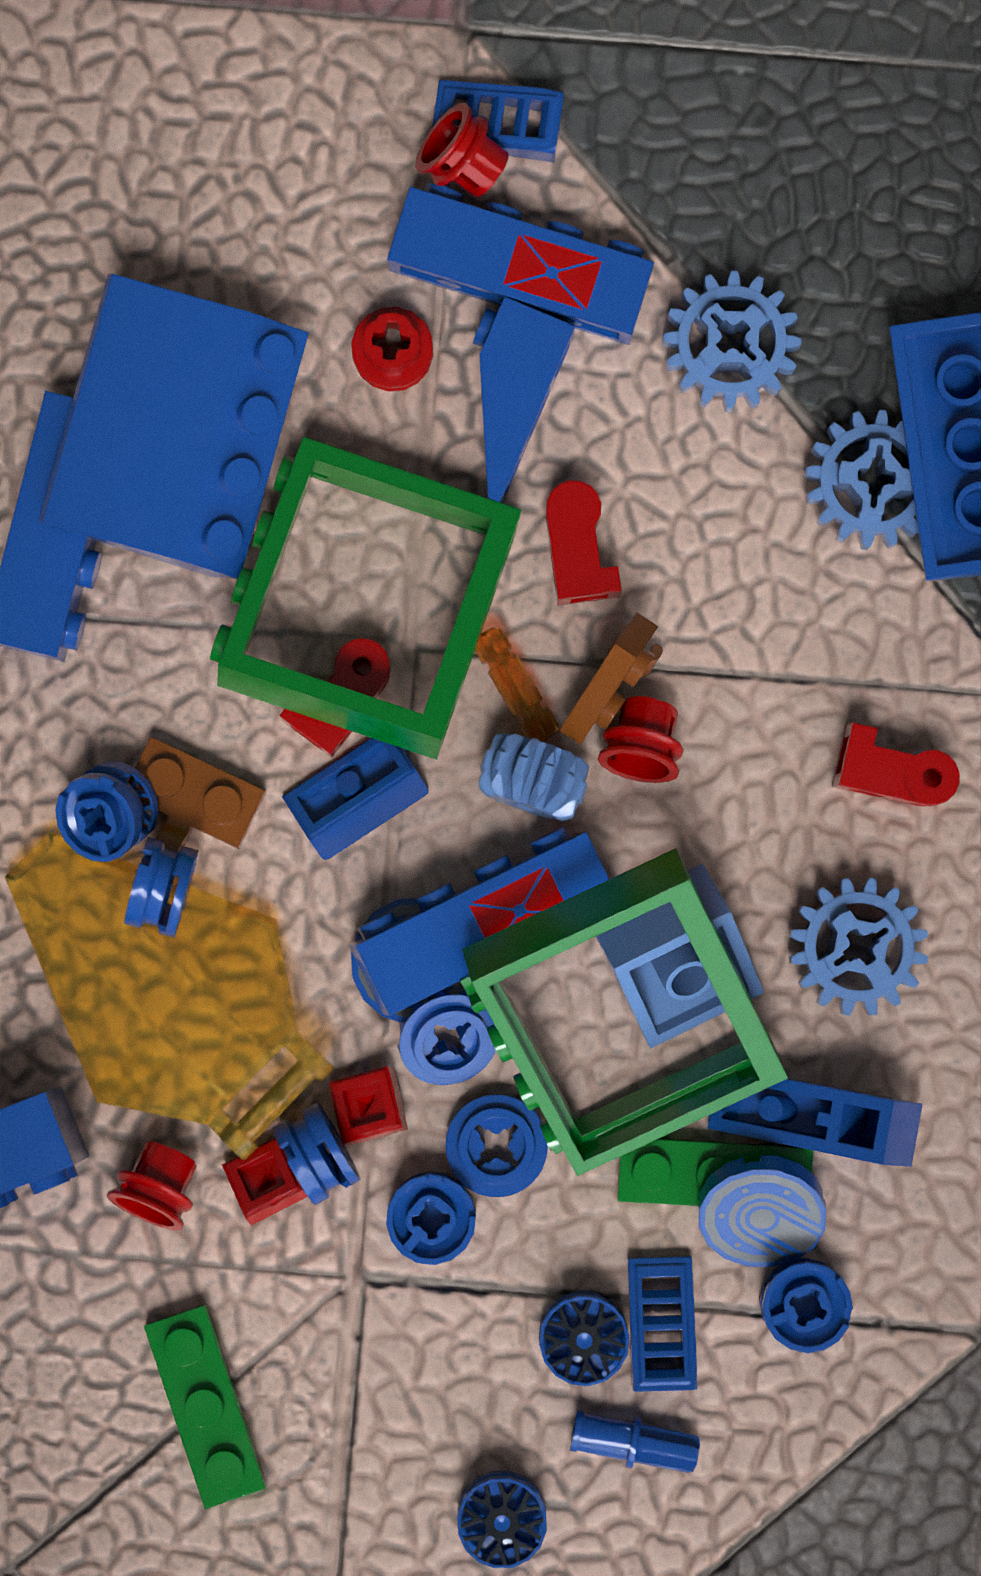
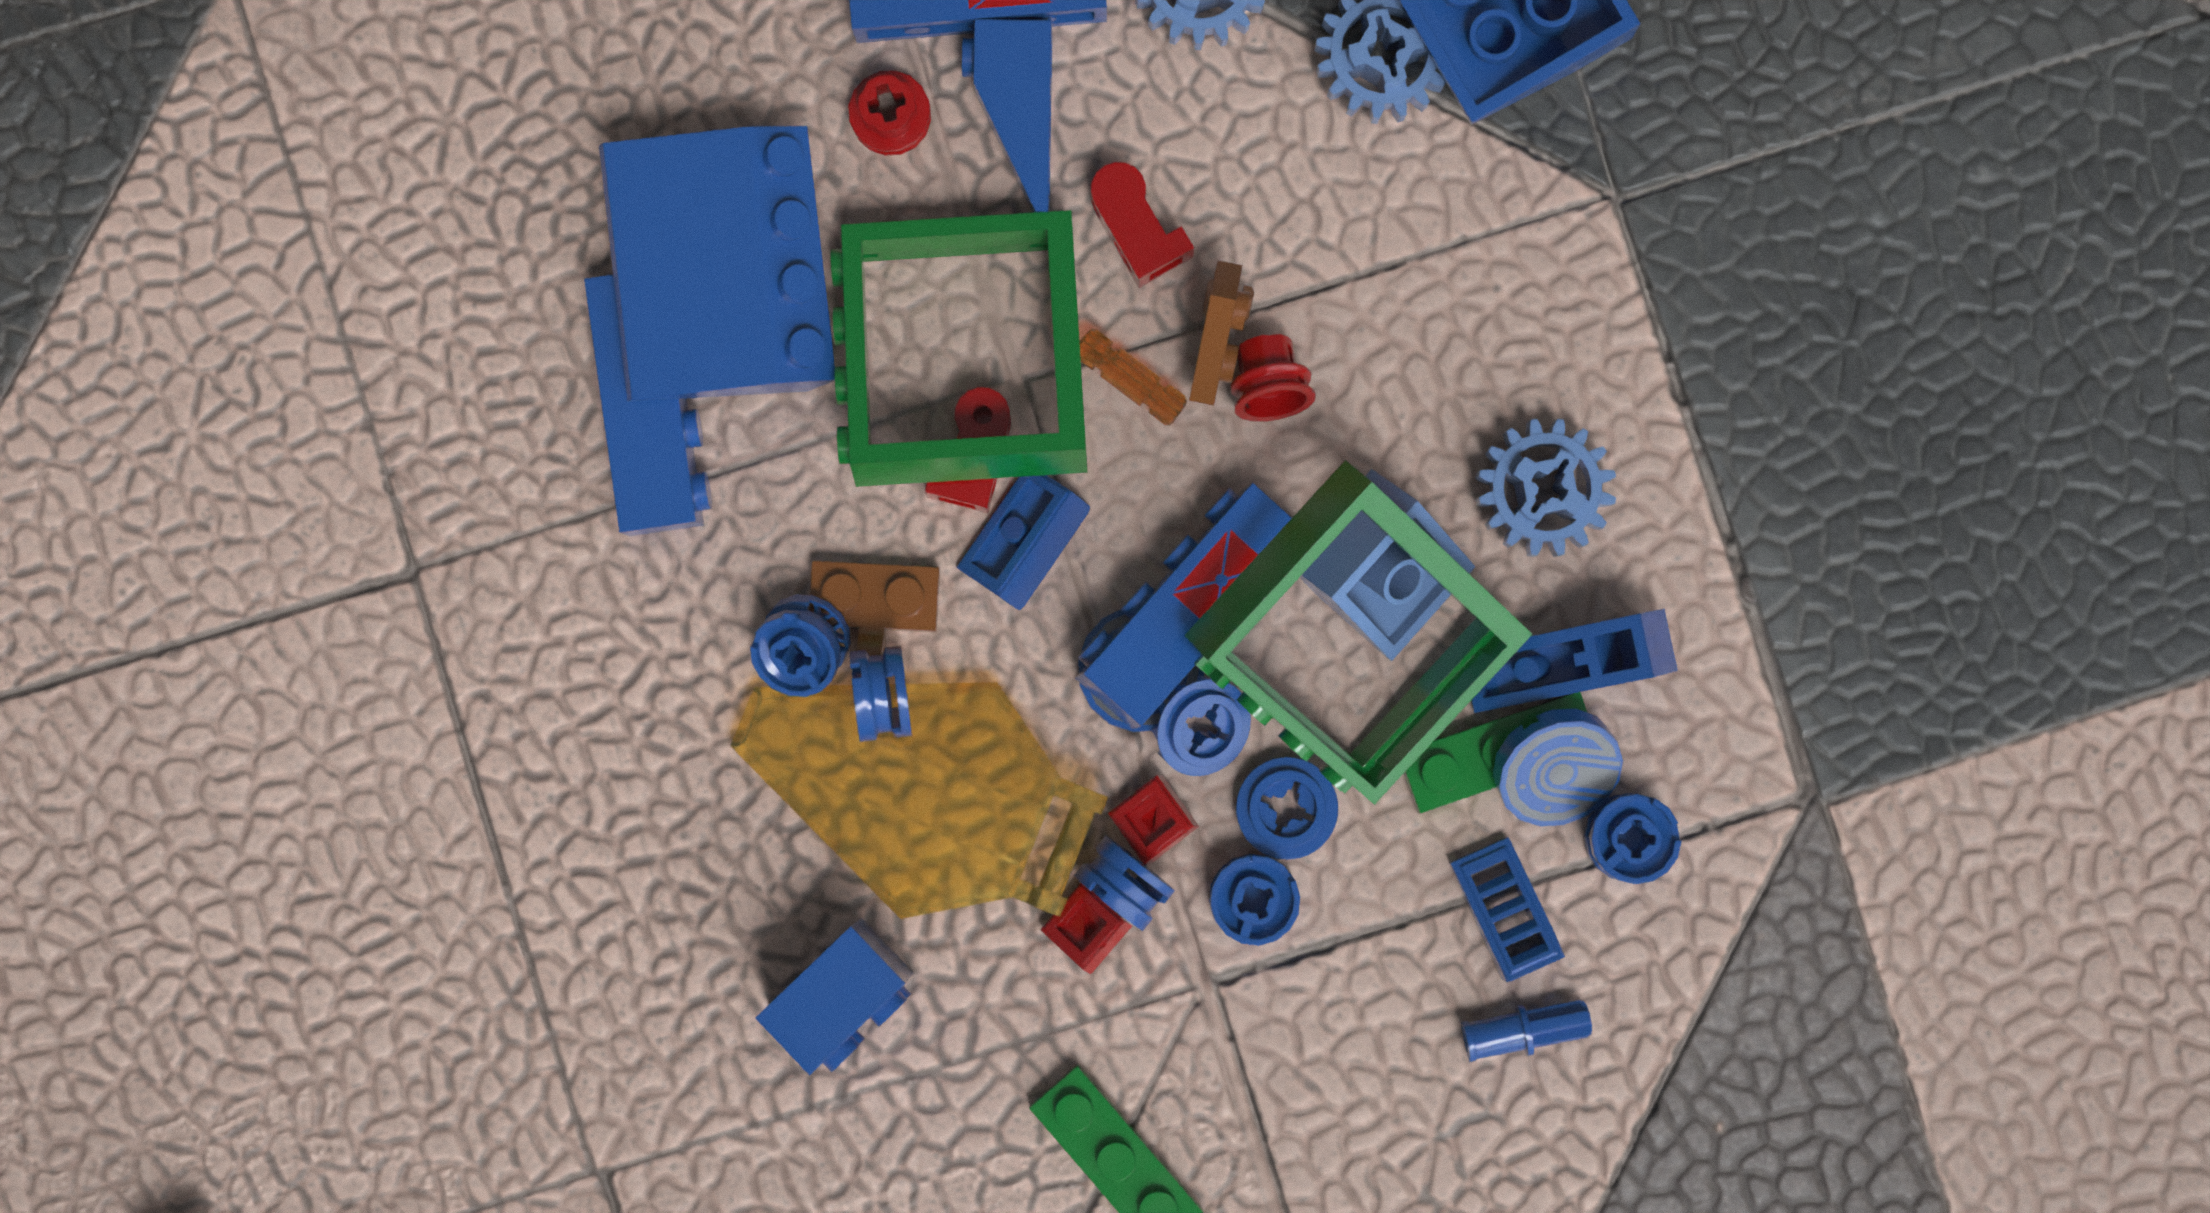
camera: 25 degrees left, 0 degrees up
(156, 1186) = (988, 974): red piece -> none
(502, 1519) = (1433, 1151): blue wheel -> none
(533, 776) = (1182, 452): medium blue gear -> none
(583, 1338) = (1440, 952): blue wheel -> none
(893, 775) = (1511, 316): red leg -> none

